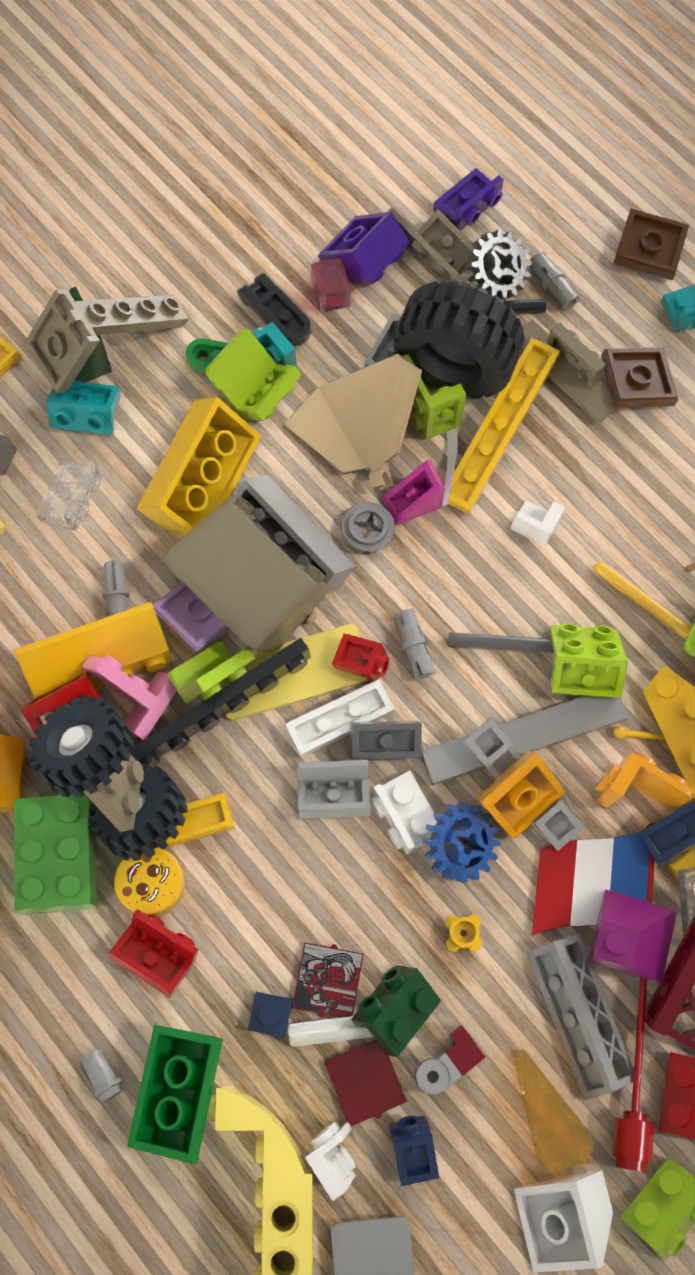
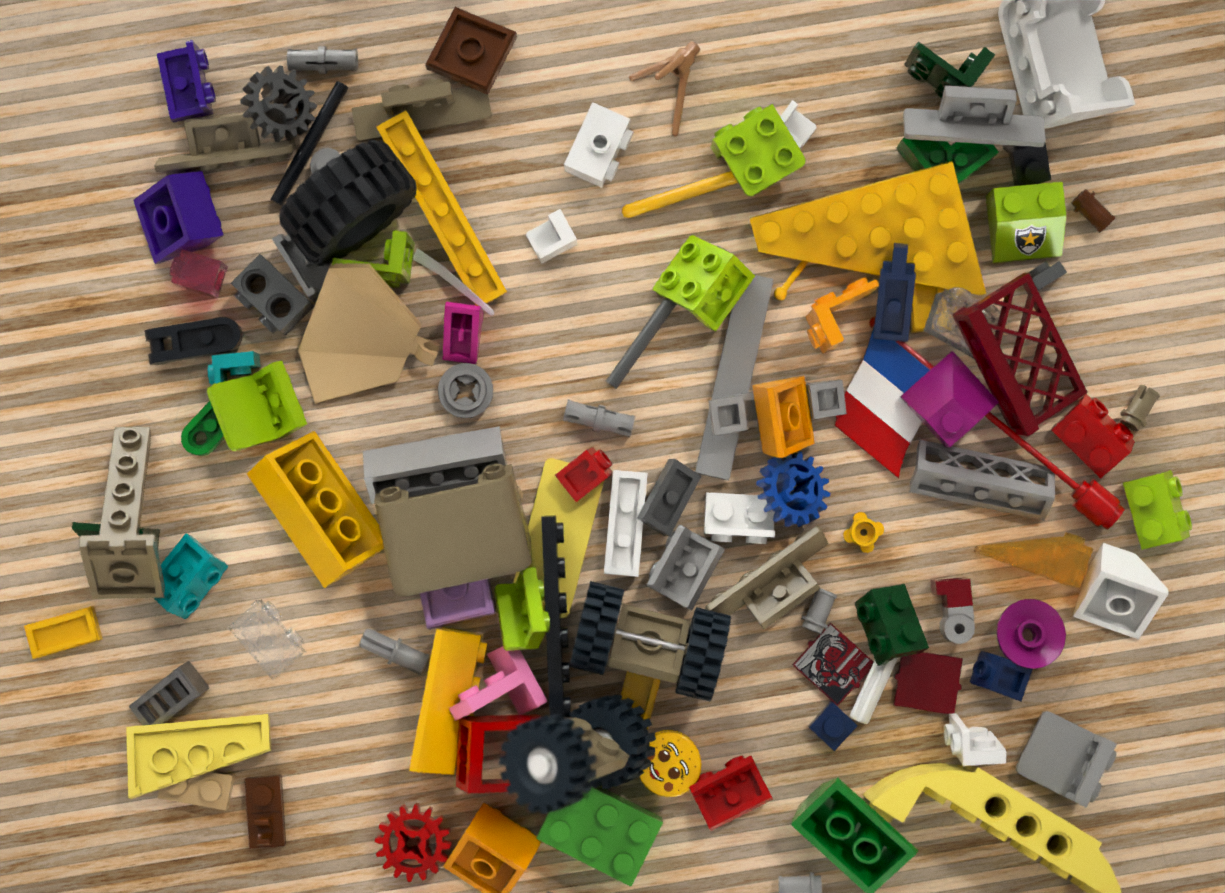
camera: 55 degrees left, 15 degrees up
(246, 793) = (651, 642): none -> plate
(350, 343) = (276, 290): none -> dark grey brick
(366, 878) = (776, 584): none -> dark tan bracket
(367, 935) = (819, 611): none -> light grey pin
(489, 1157) = (1046, 629): none -> magenta dish
(636, 511) = (598, 145): none -> white brick

